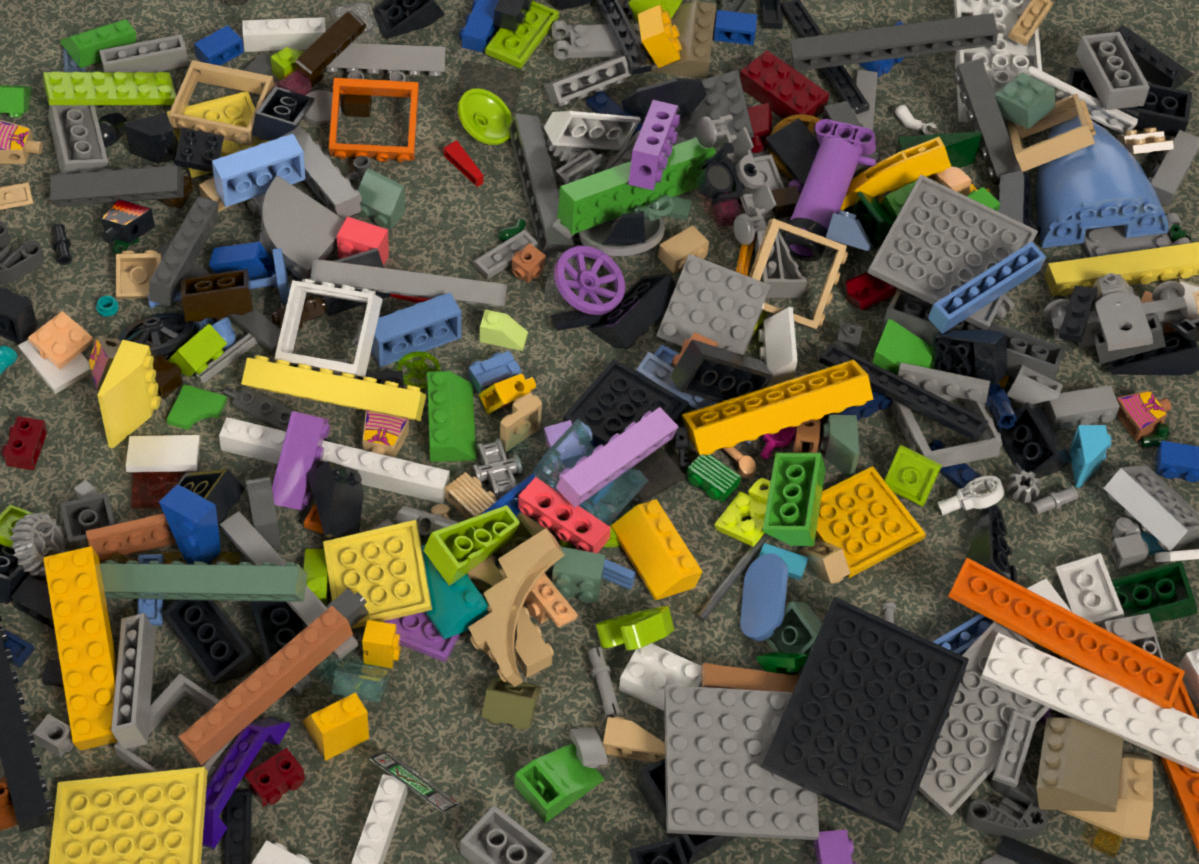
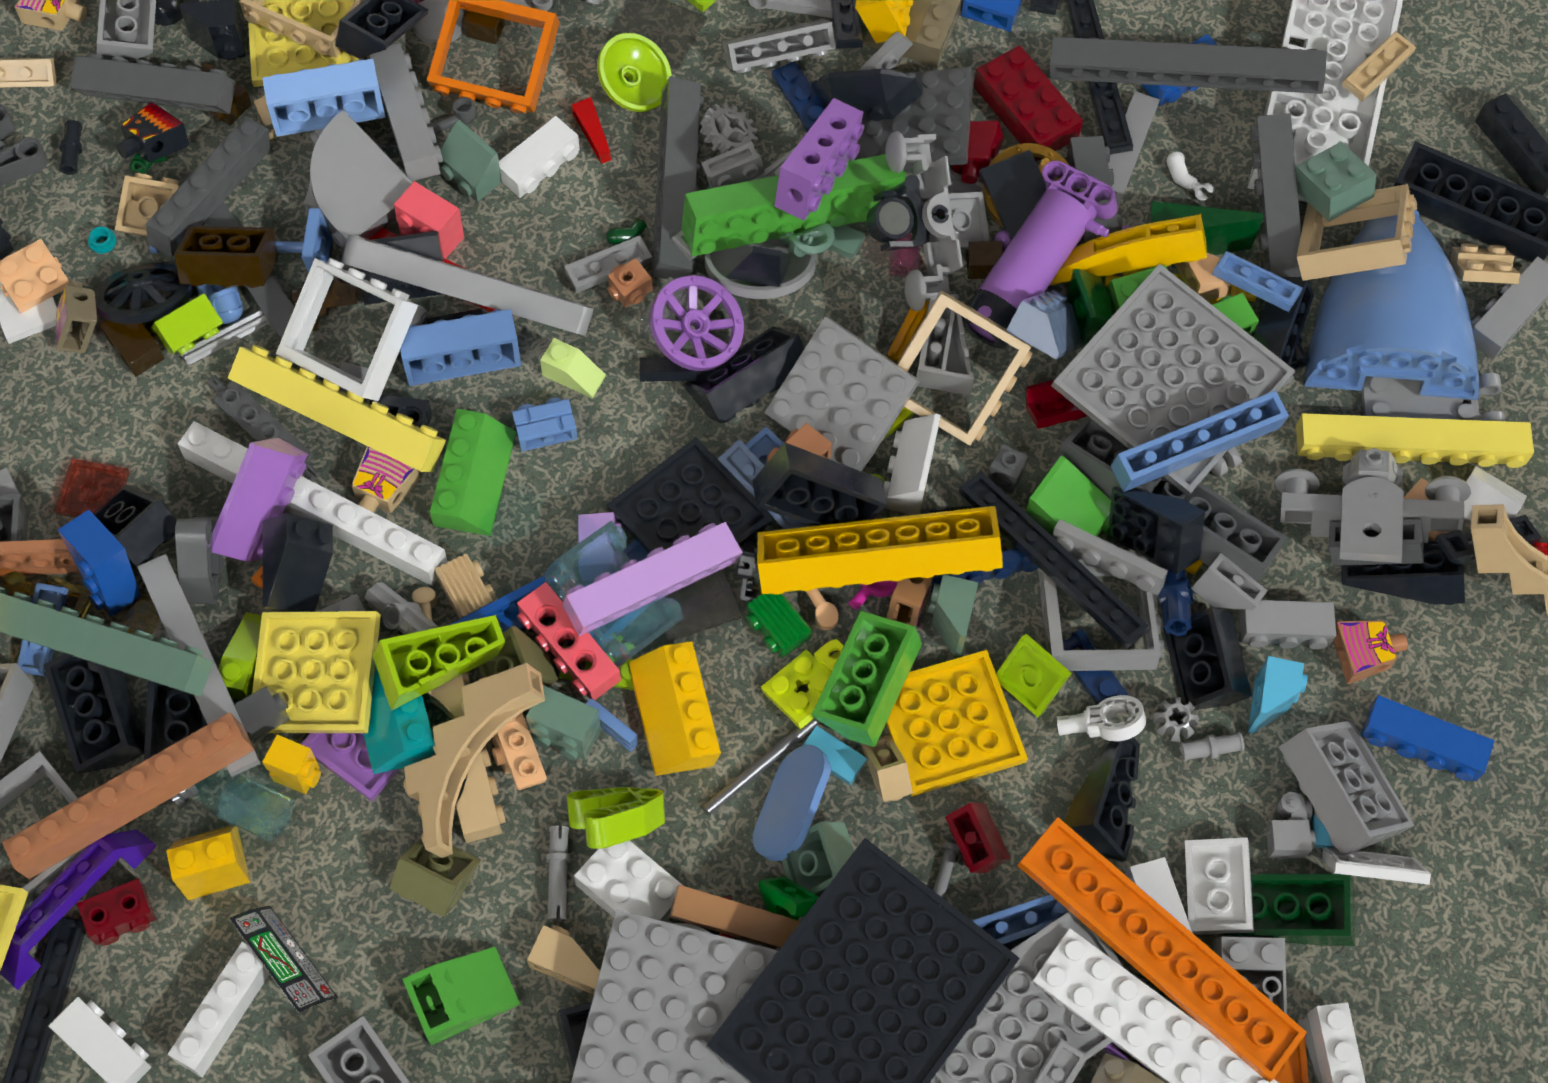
camera: 15 degrees right, 10 degrees up
(128, 392) = (75, 368): light yellow slope -> none
(163, 453) = (109, 450): white tile -> none
(195, 405) = (168, 393): bright green tile -> none
(198, 149) = (263, 52): black plate -> none
(243, 256) = (275, 210): blue slope -> none
(418, 368) = (455, 397): clear neon green wheel -> none
(430, 188) = (538, 157): none -> white brick
(497, 468) = (509, 554): light grey axle -> none
(506, 392) = (542, 456): yellow torso -> none
(523, 421) = (558, 500): tan plate -> none
(589, 747) = (510, 959): light grey slope -> none
(590, 129) = (755, 117): white slope -> none
(673, 69) = (889, 53): none -> light grey plate
(676, 249) = (834, 299): tan brick -> none
(907, 593) = (977, 838): none -> dark red brick
(990, 177) = (1257, 281): none -> medium blue tile
(1078, 313) = (1317, 495): black plate -> none
(1112, 71) = (1466, 160): light grey brick -> none
(1113, 118) = (1428, 203): white tile -> none
(1161, 434) = (1378, 686): dark green arm -> none
(1176, 233) = (1491, 403): dark green arm -> none

